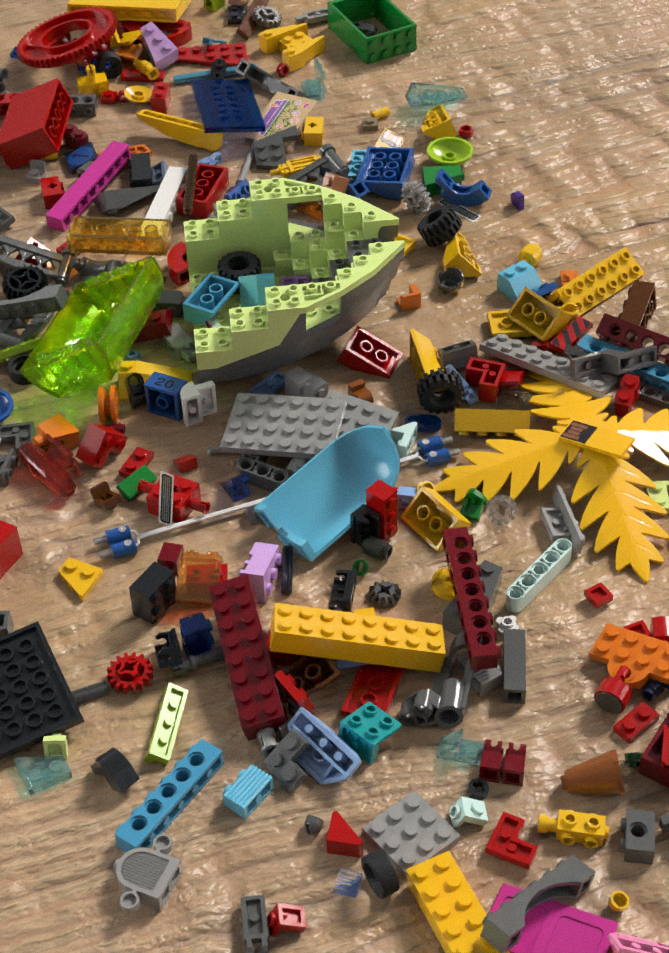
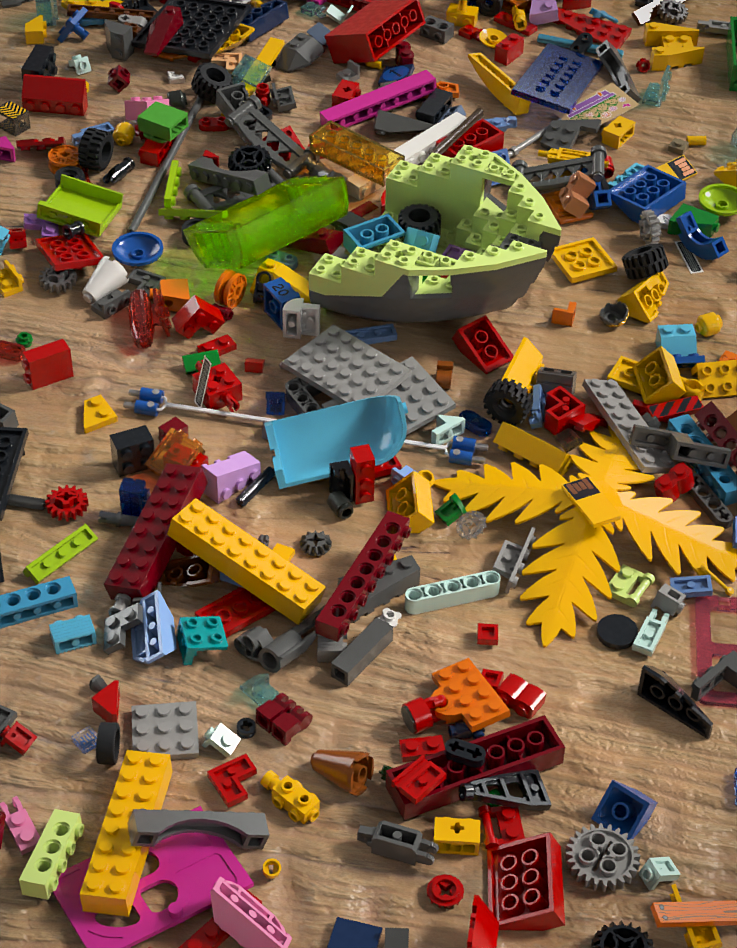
camera: 30 degrees right, 0 degrees up
(104, 497) = (167, 360): reddish brown bracket -> none
(169, 652) = (107, 502): black hinge -> none
(299, 696) = (163, 581): red plate -> none
(304, 385) = (397, 346): light grey brick -> none
(343, 590) = (284, 526): black hinge -> none
(356, 565) = (312, 511): green hinge -> none
(640, 848) = (334, 831): dark grey brick -> none

